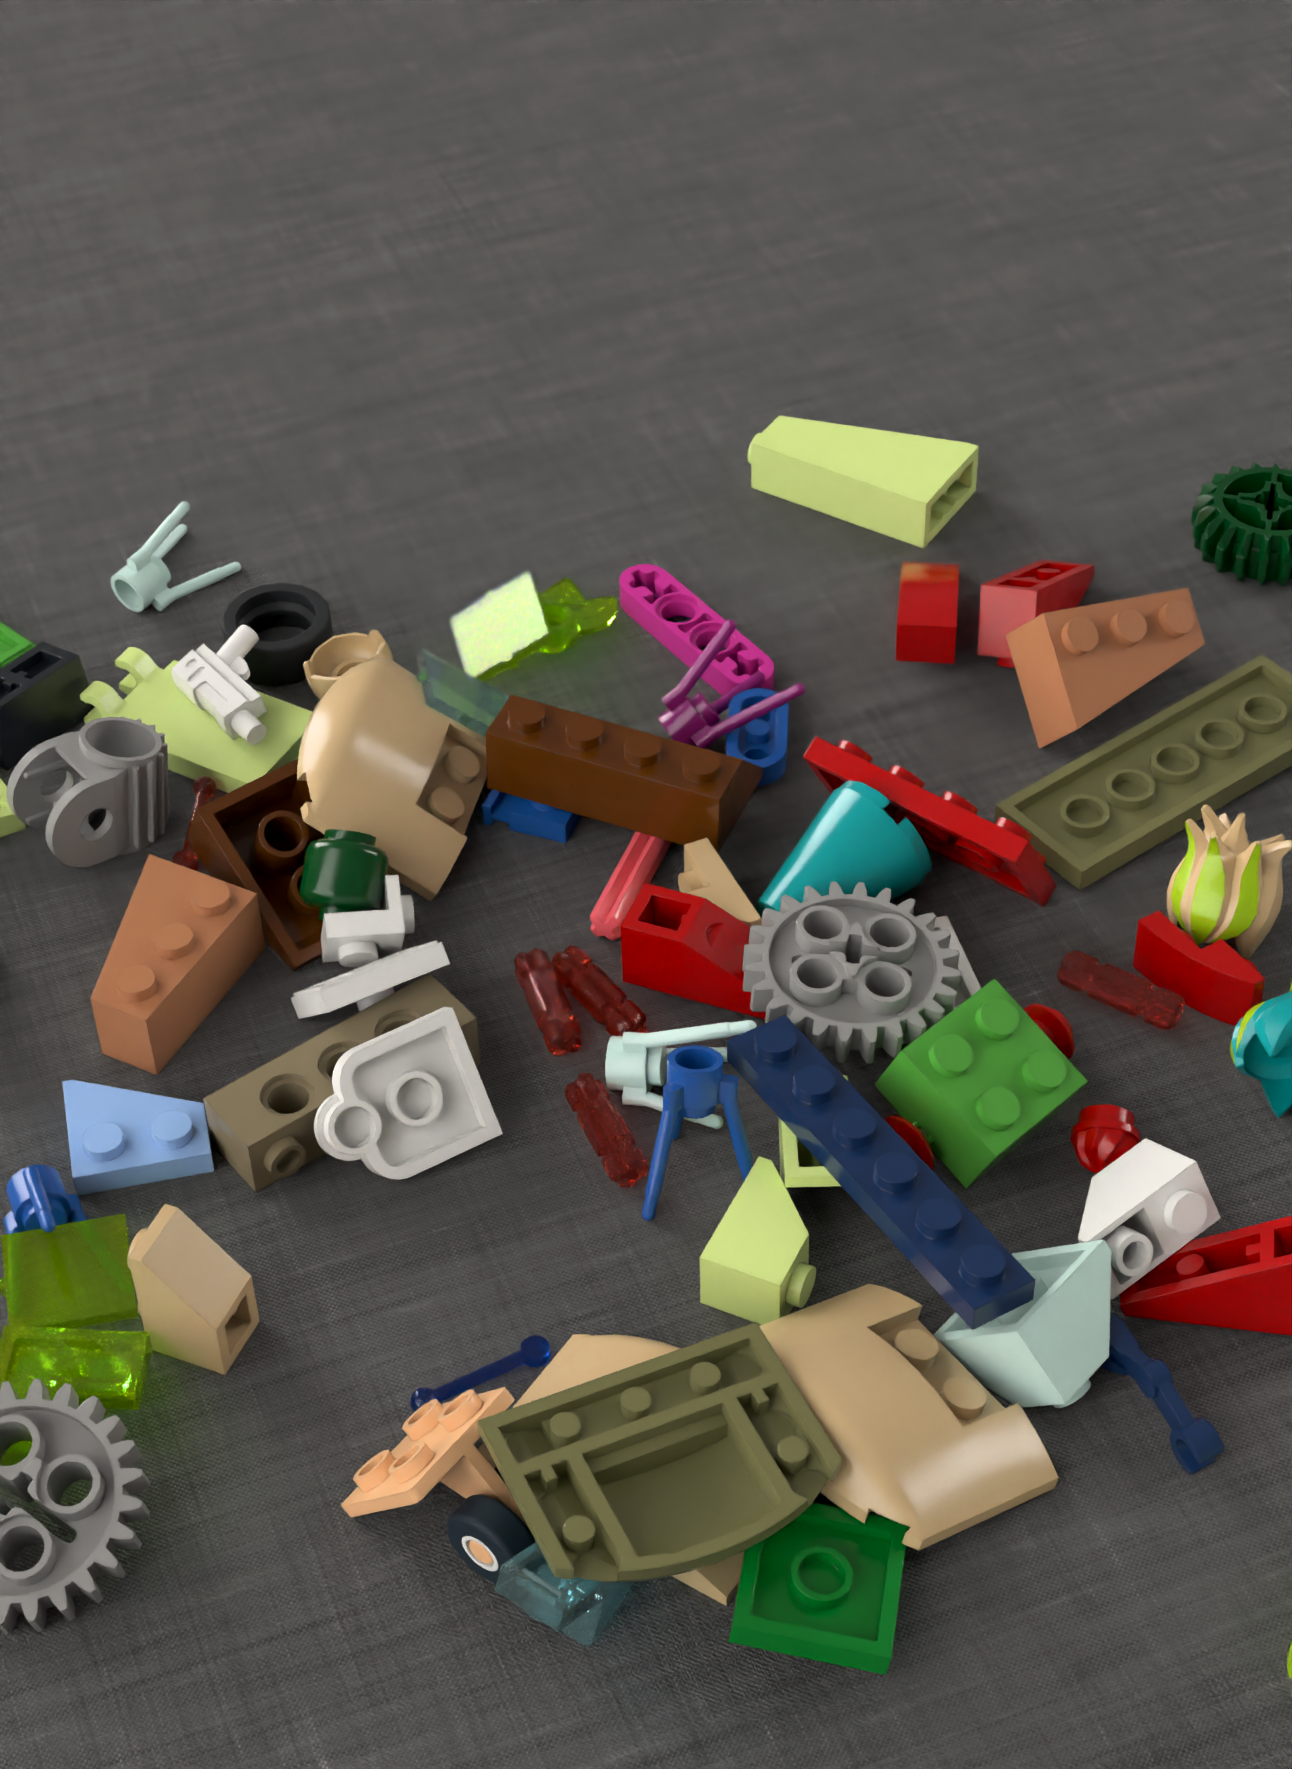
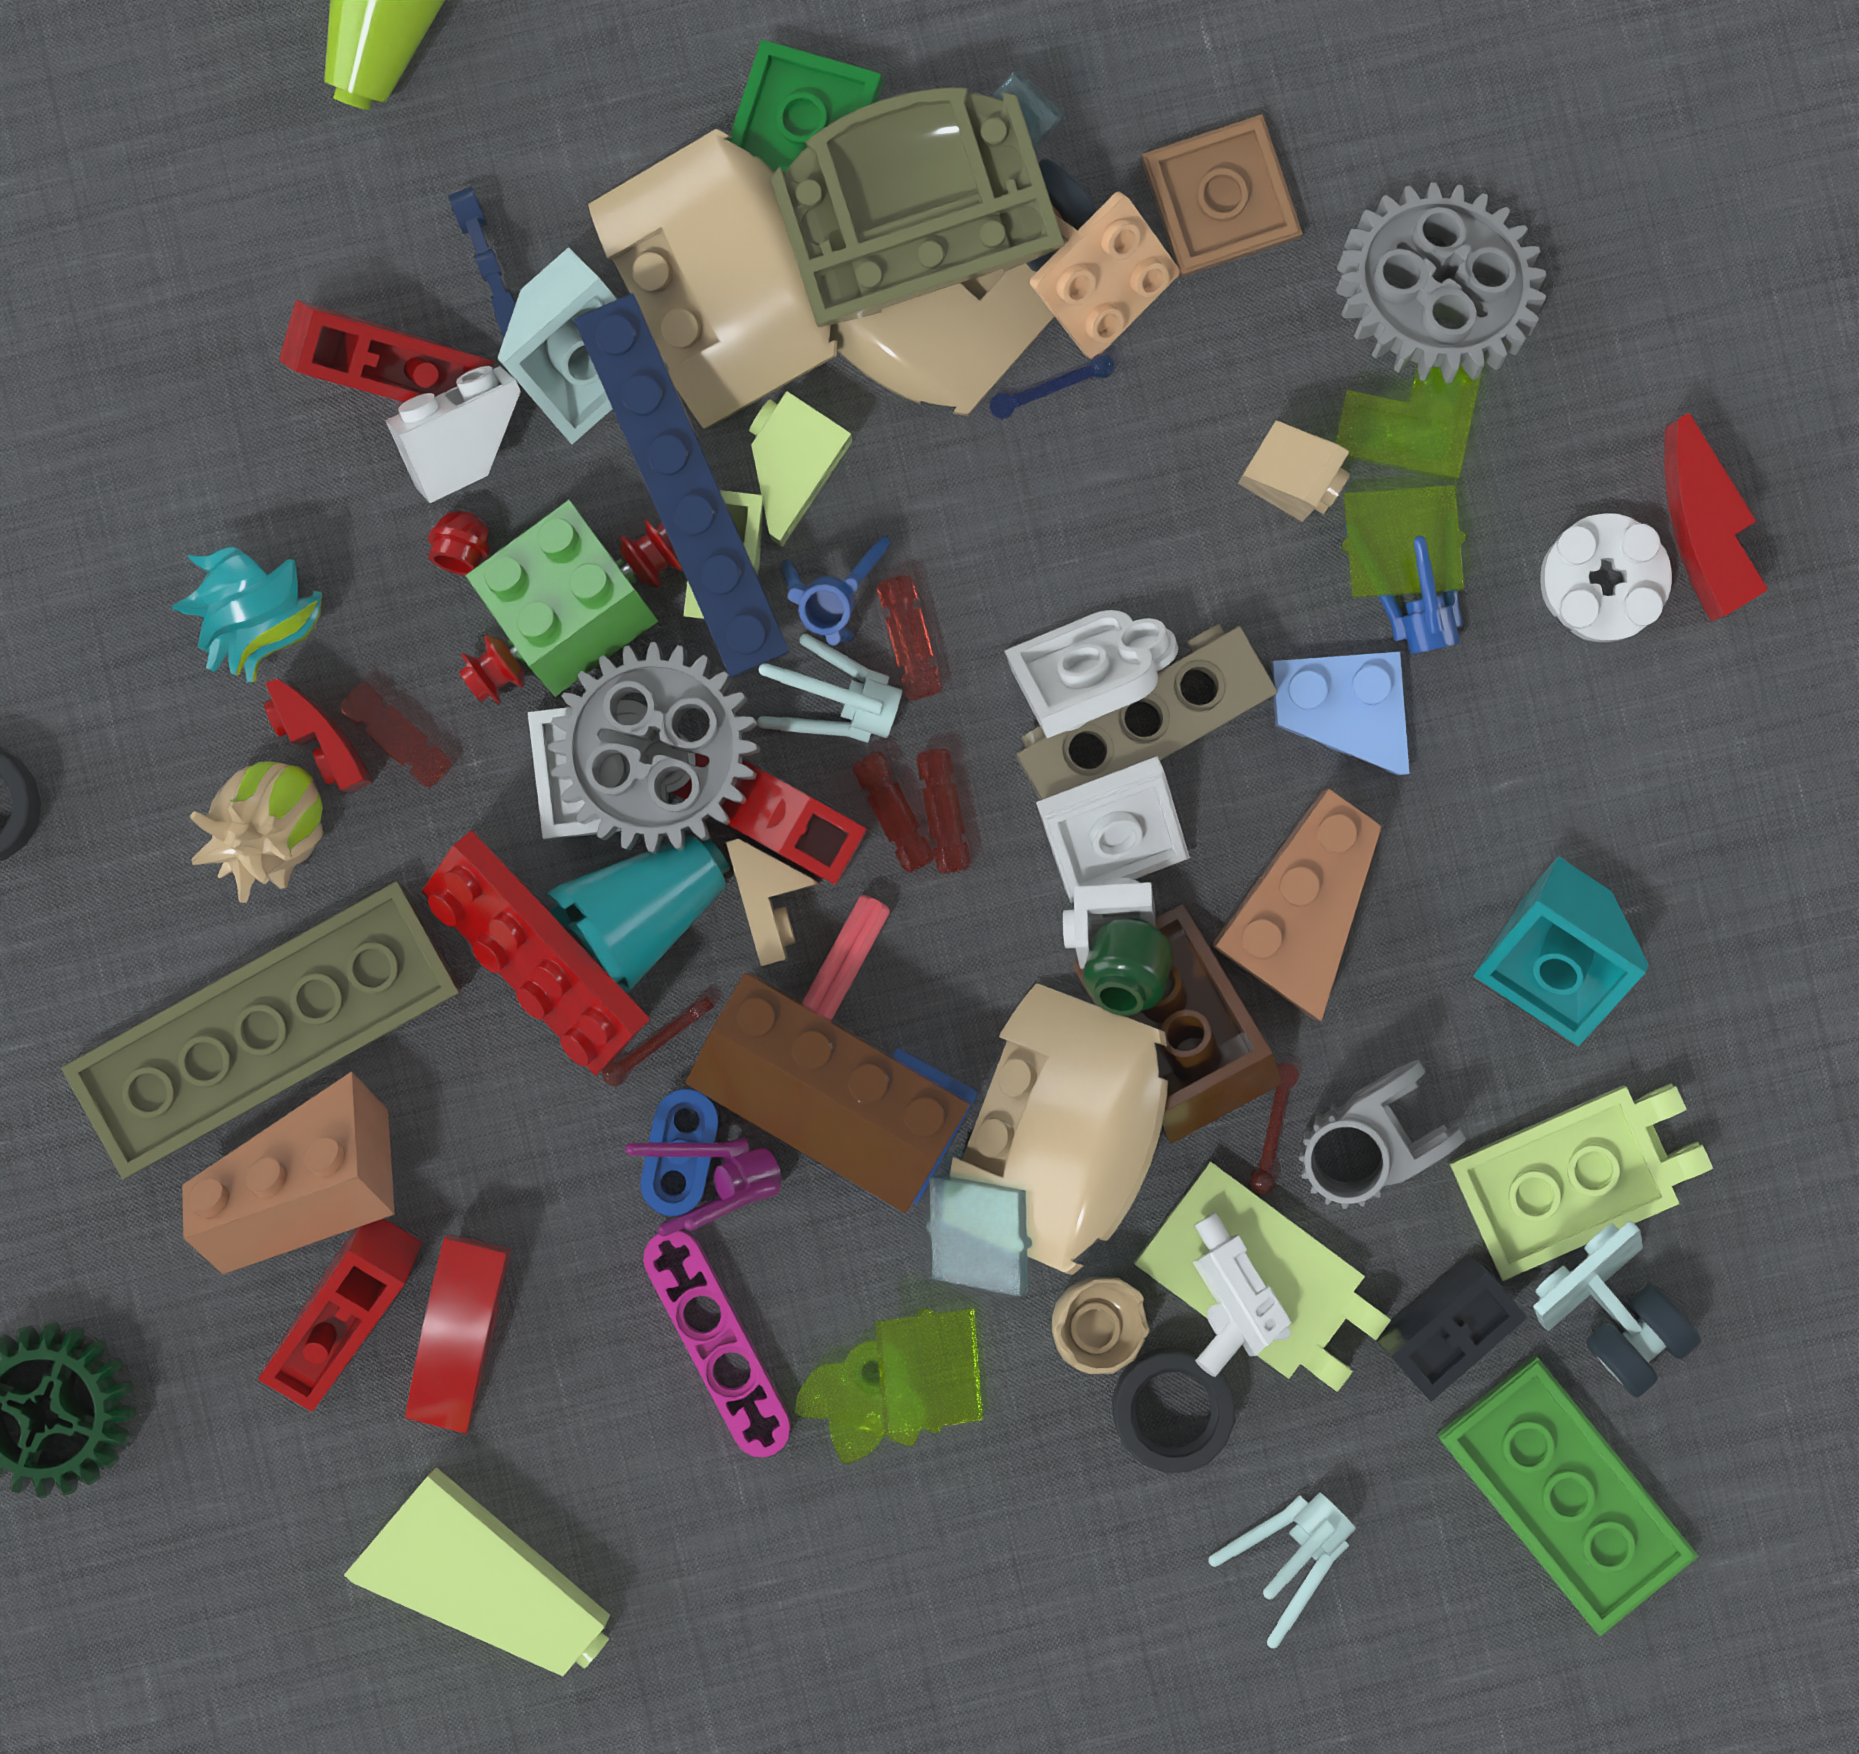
camera: 175 degrees left, 45 degrees up
(295, 1590) = (1221, 196): none -> medium nougat tile
(763, 836) = (616, 1072): none -> clear red hinge

